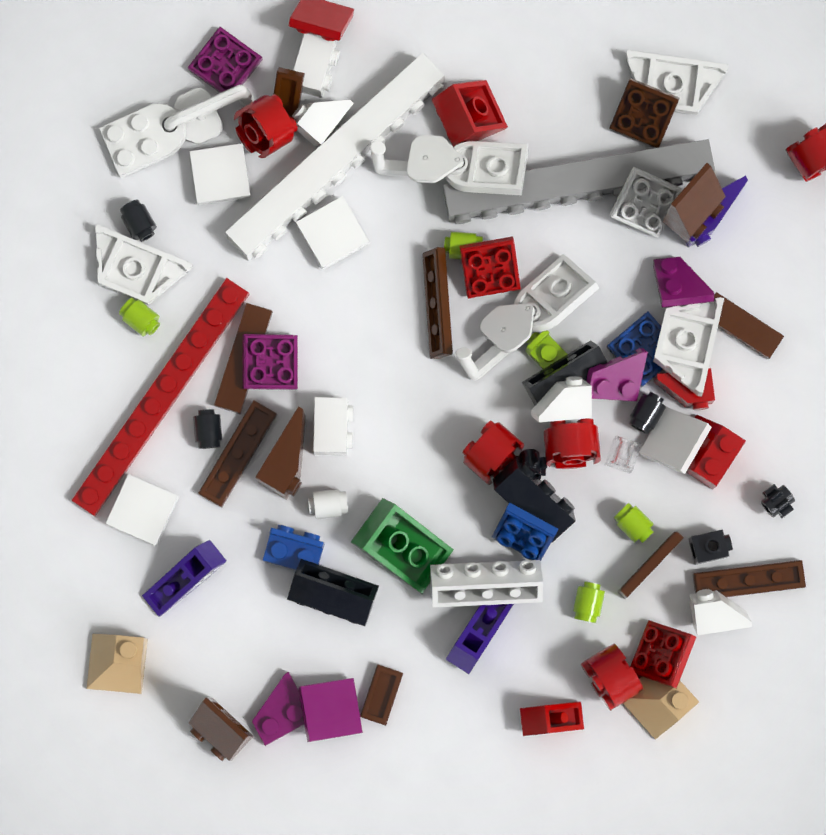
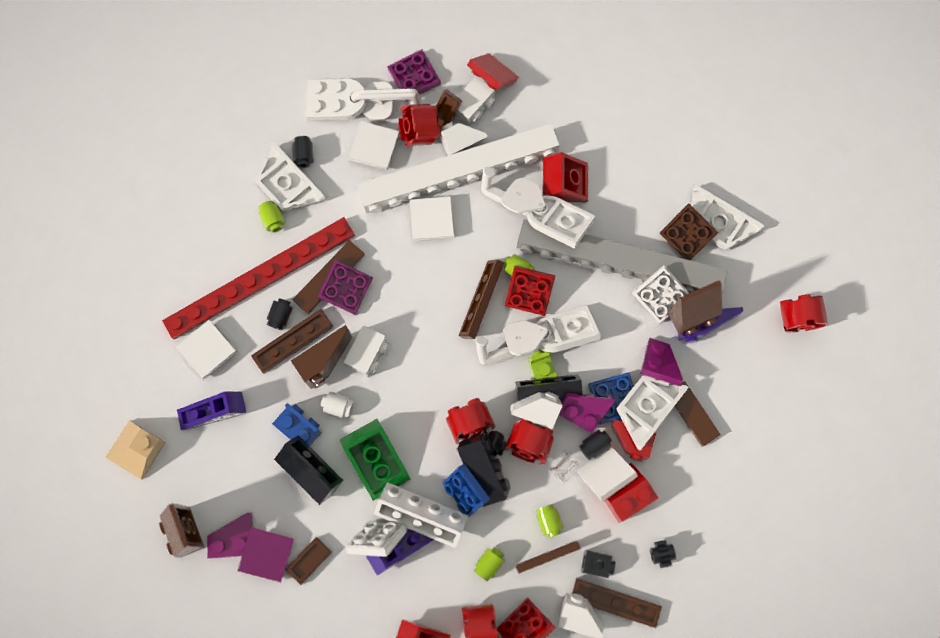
camera: 25 degrees right, 5 degrees down
(450, 633) = (376, 539): none -> white tile

